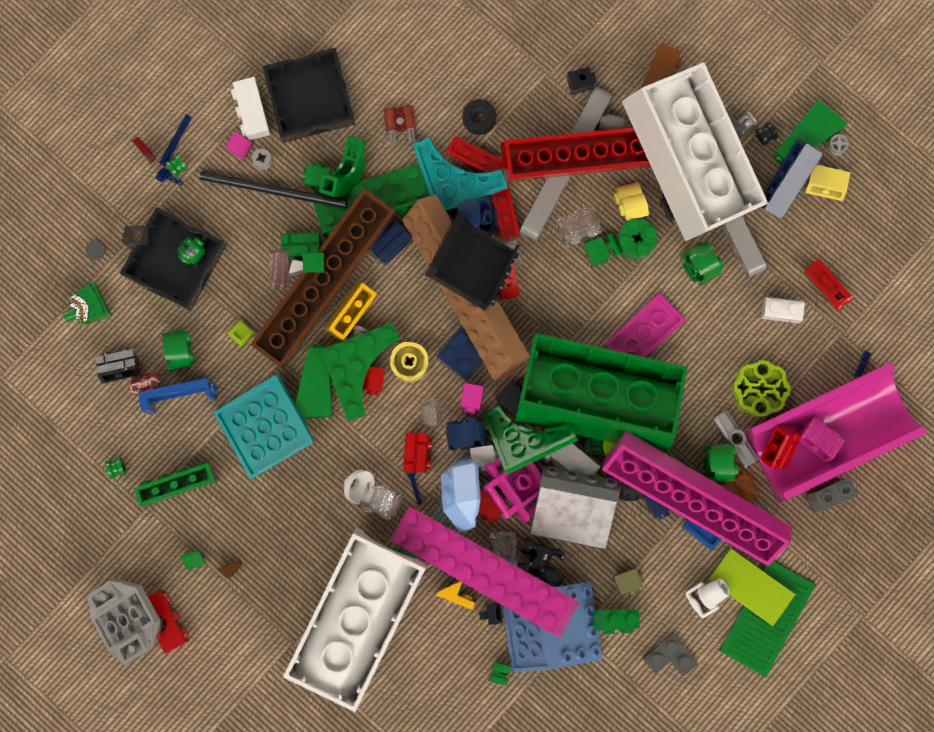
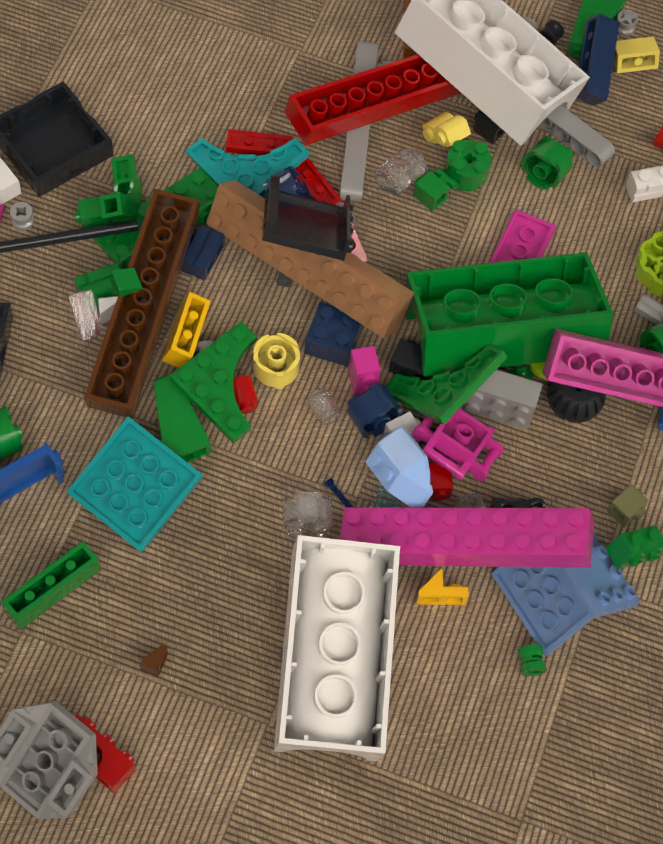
camera: 30 degrees left, 20 degrees down
(193, 559) = (104, 667): green slope -> none
(241, 333) = (66, 400): lime tile -> none
(355, 493) = (271, 509): white piece -> none
(400, 120) = (161, 135): clear red piece -> none
(416, 453) = (325, 453): red brick -> none
(474, 107) = (242, 116): black tyre -> none
(493, 614) = (492, 597): black tile -> none
(575, 507) = (535, 439): flat silver panel -> none
(580, 80) = (338, 42): black brick -> none
(655, 508) = (619, 414): dark blue brick -> none

